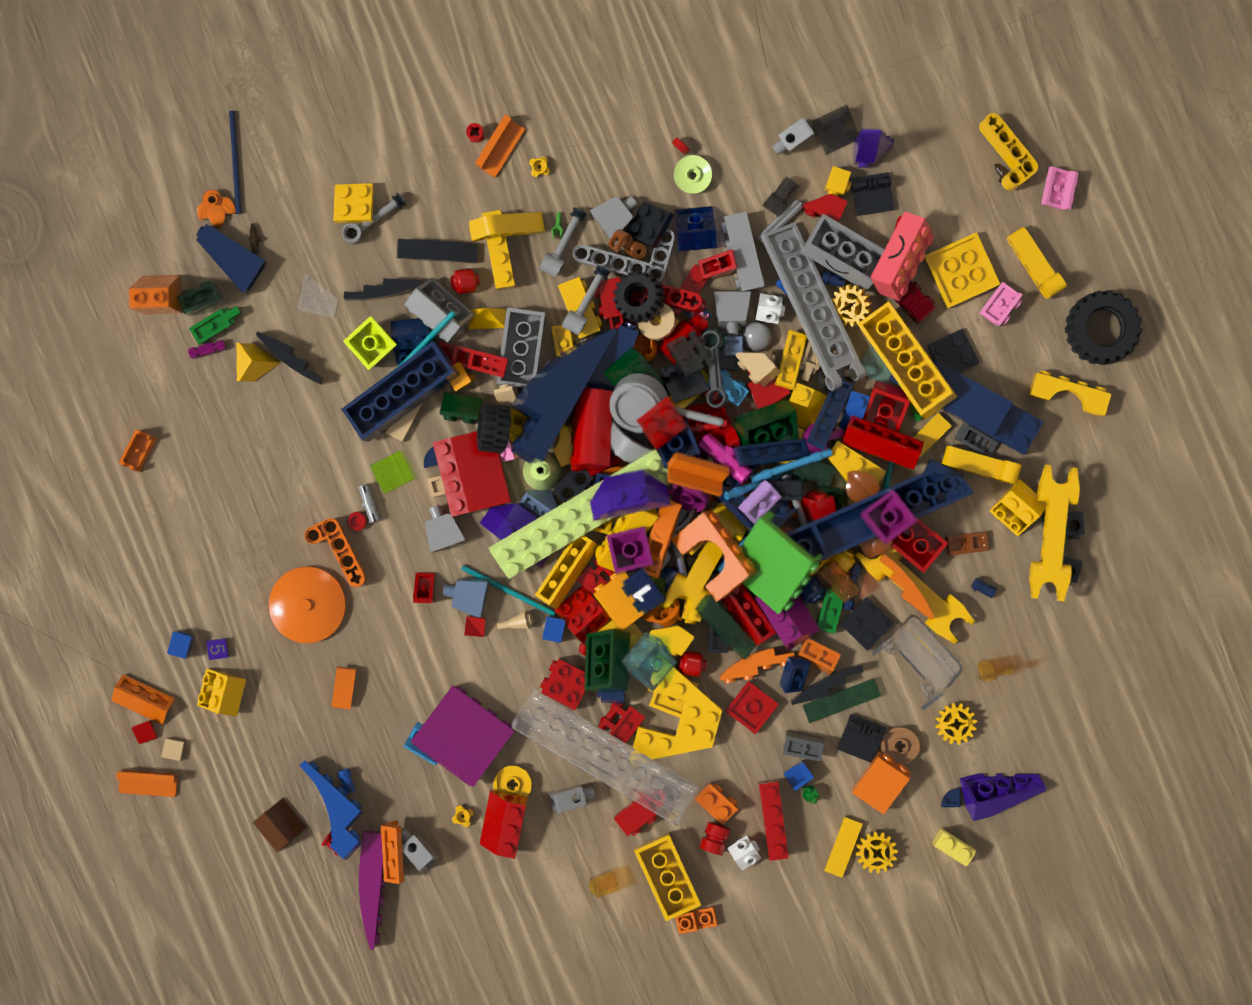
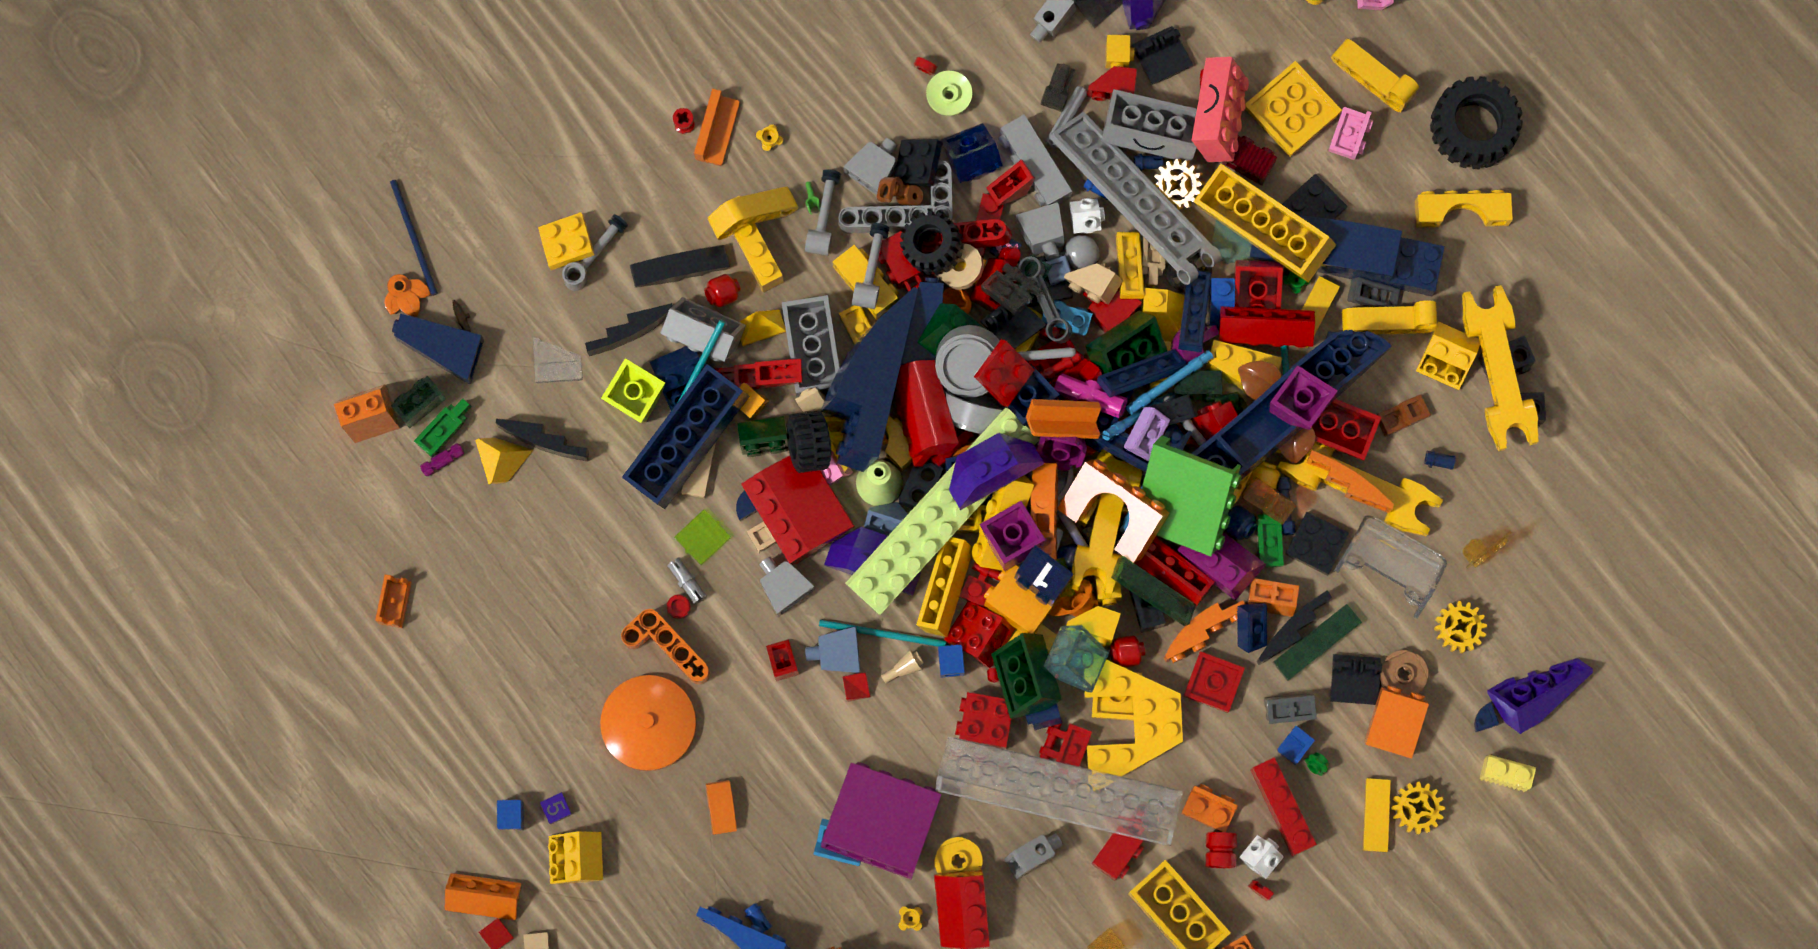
camera: 15 degrees left, 10 degrees down
(736, 877) = (1263, 892): none -> red tile

